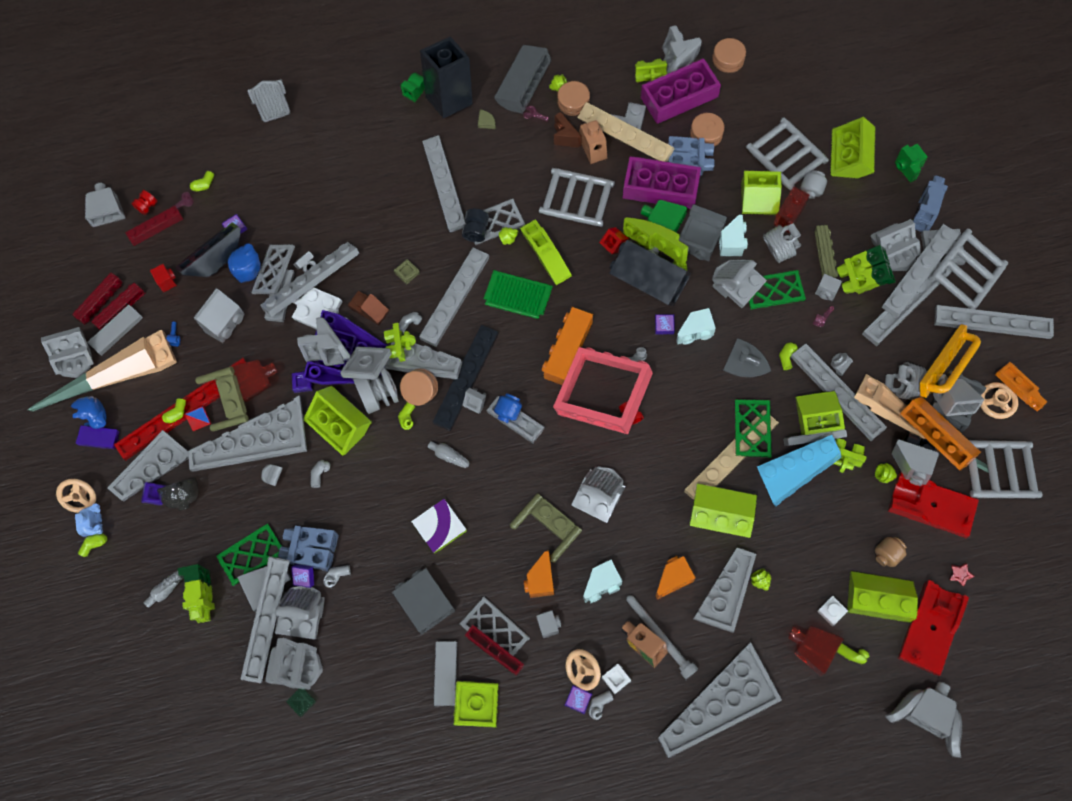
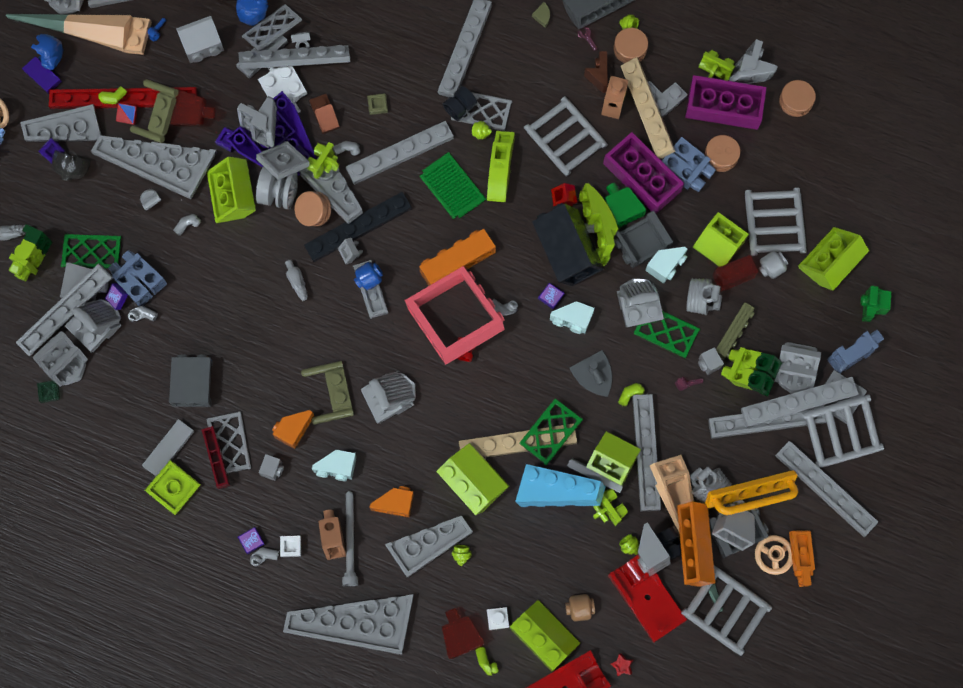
camera: 30 degrees right, 5 degrees up
(404, 416) = (285, 226): lime arm -> none
(439, 526) = (247, 332): tile -> none
(584, 667) = (274, 520): light nougat piece -> none
(841, 362) = (669, 431): light grey plate -> none

